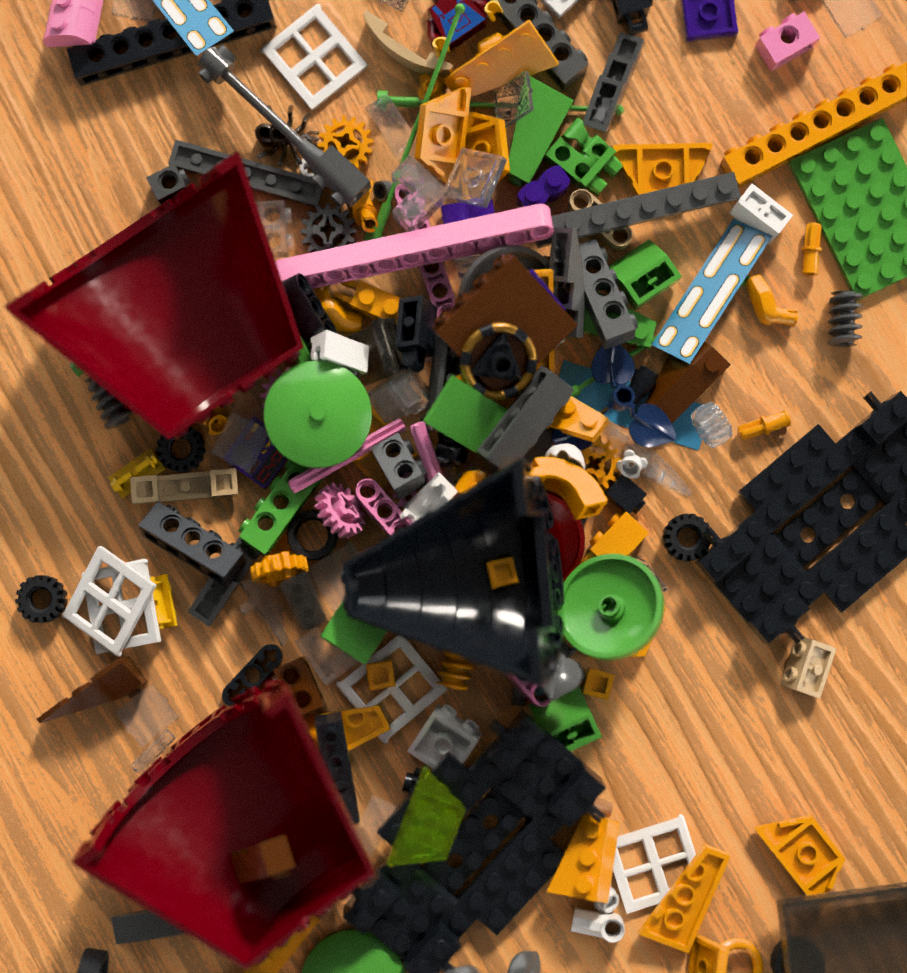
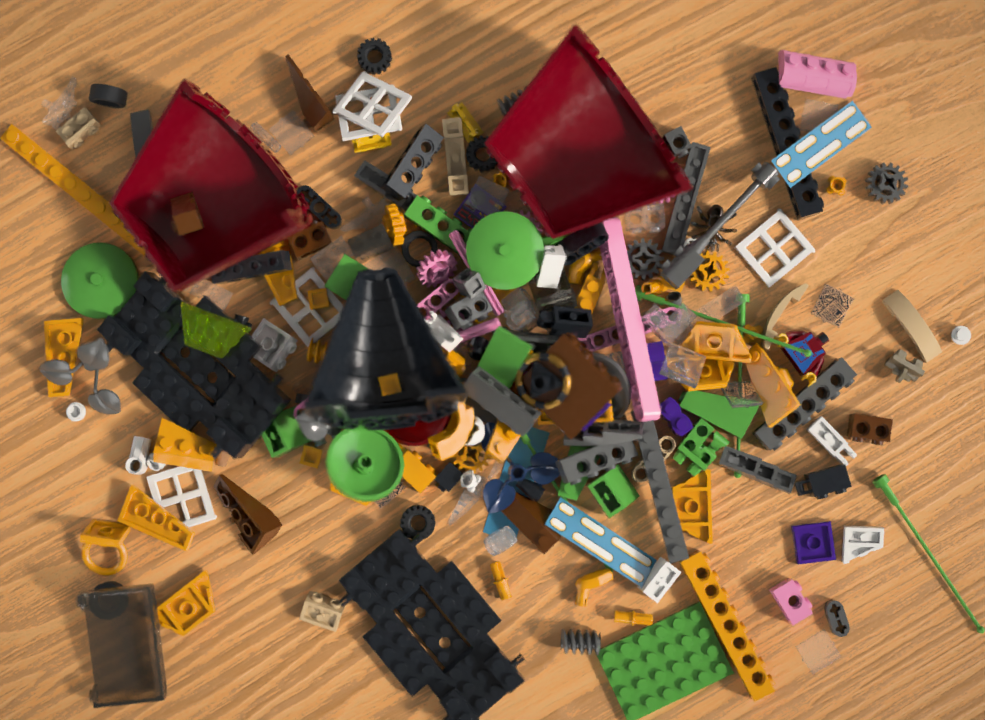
camera: 85 degrees right, 0 degrees up
(362, 463) = (469, 283): none -> dark grey brick
(684, 763) = (253, 519): none -> reddish brown wedge

